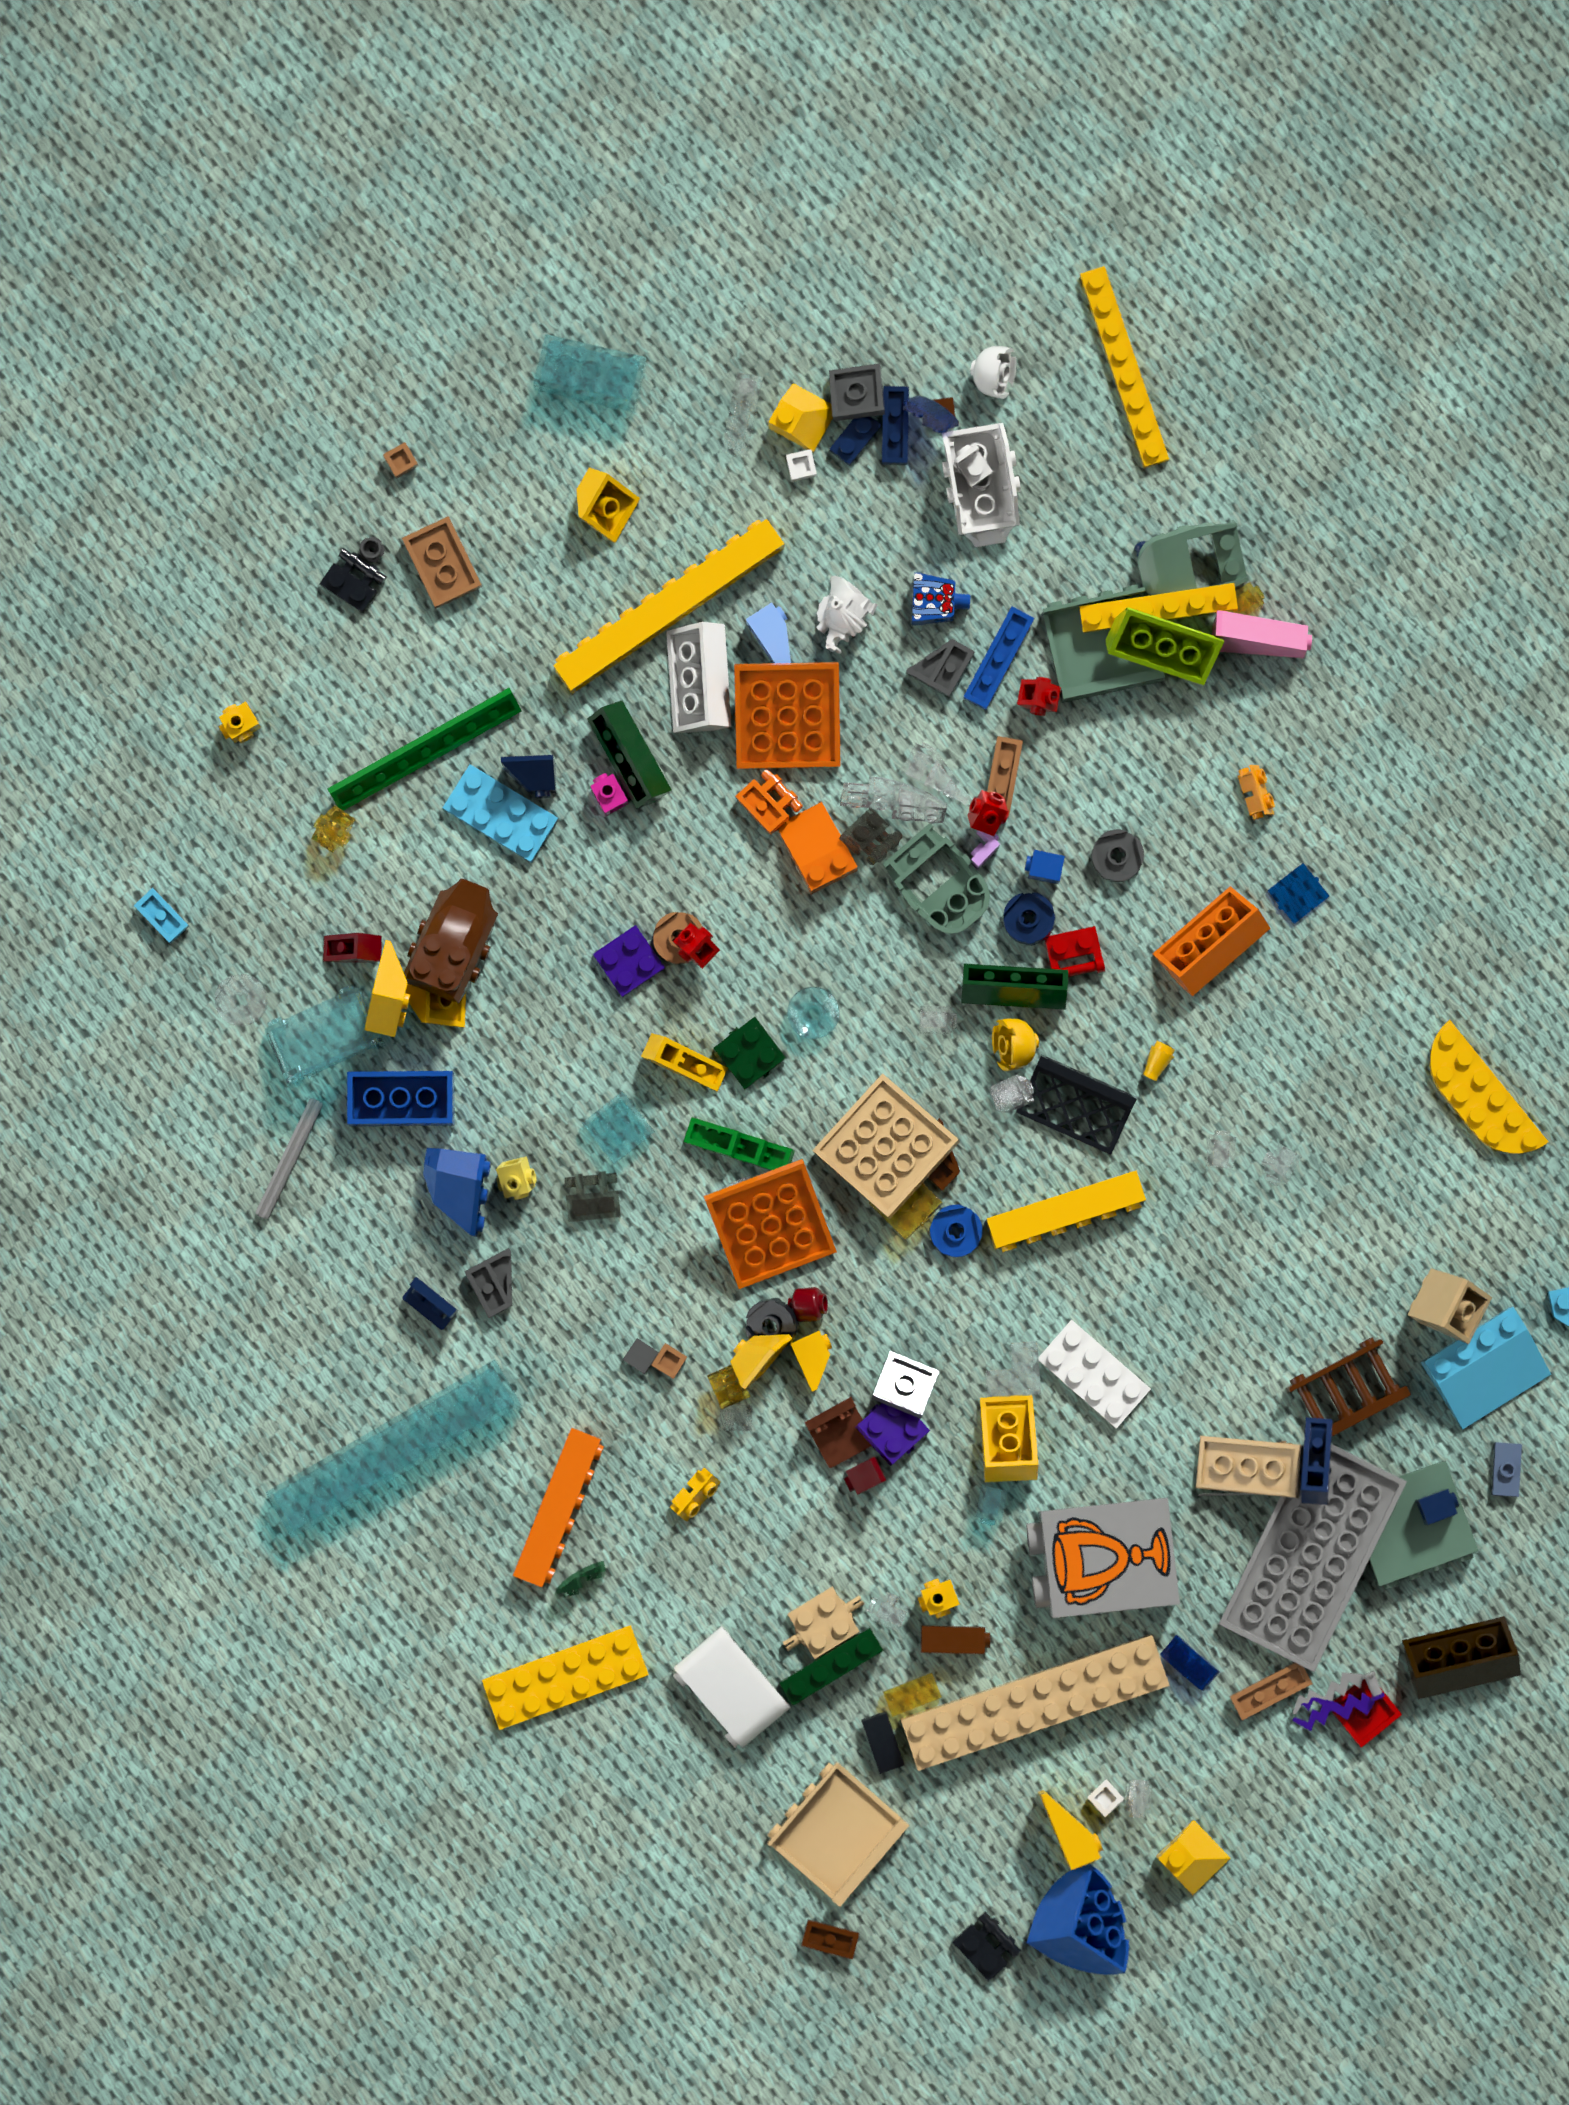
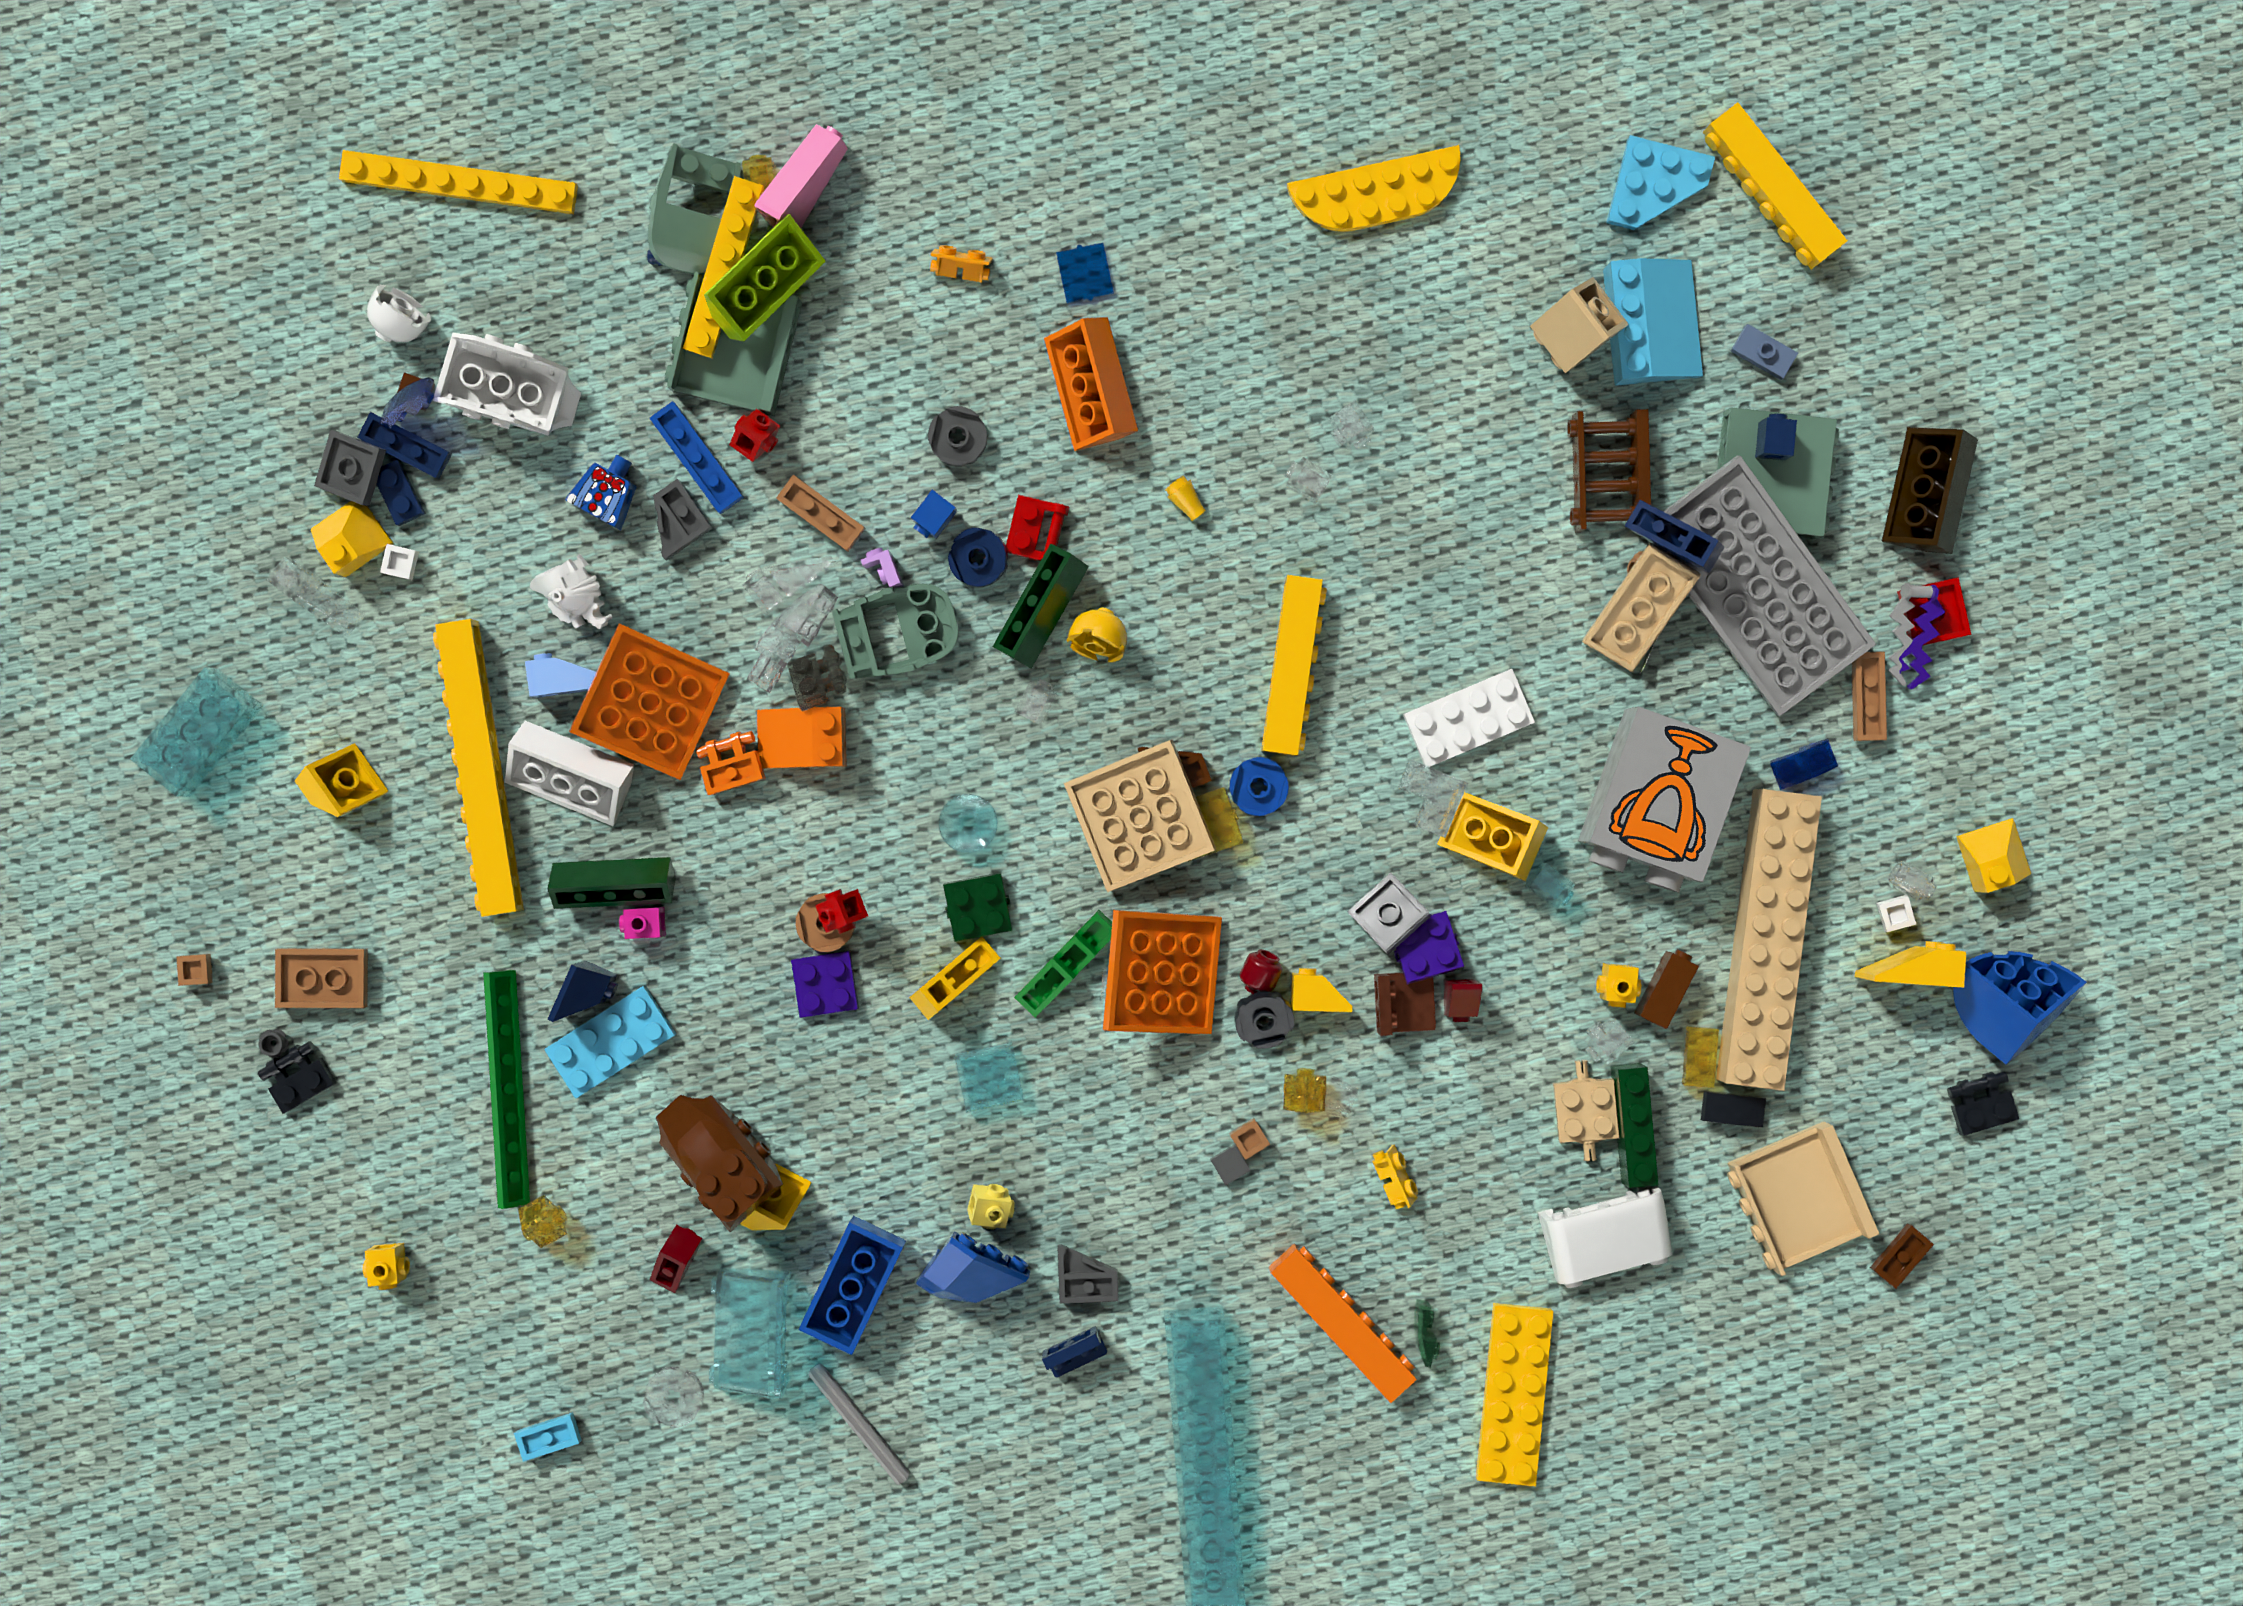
camera: 65 degrees left, 5 degrees up
(388, 995) = (738, 1256): yellow slope -> none
(592, 1205) = (1055, 1139): clear smoke plate -> none
(756, 1356) = (1289, 1052): yellow slope -> none
(972, 465) = (480, 385): white bracket -> none
(987, 812) = (849, 545): red brick -> none
(1012, 1093) = (1148, 662): clear brick -> none
(1087, 1084) = (1173, 583): black fence -> none

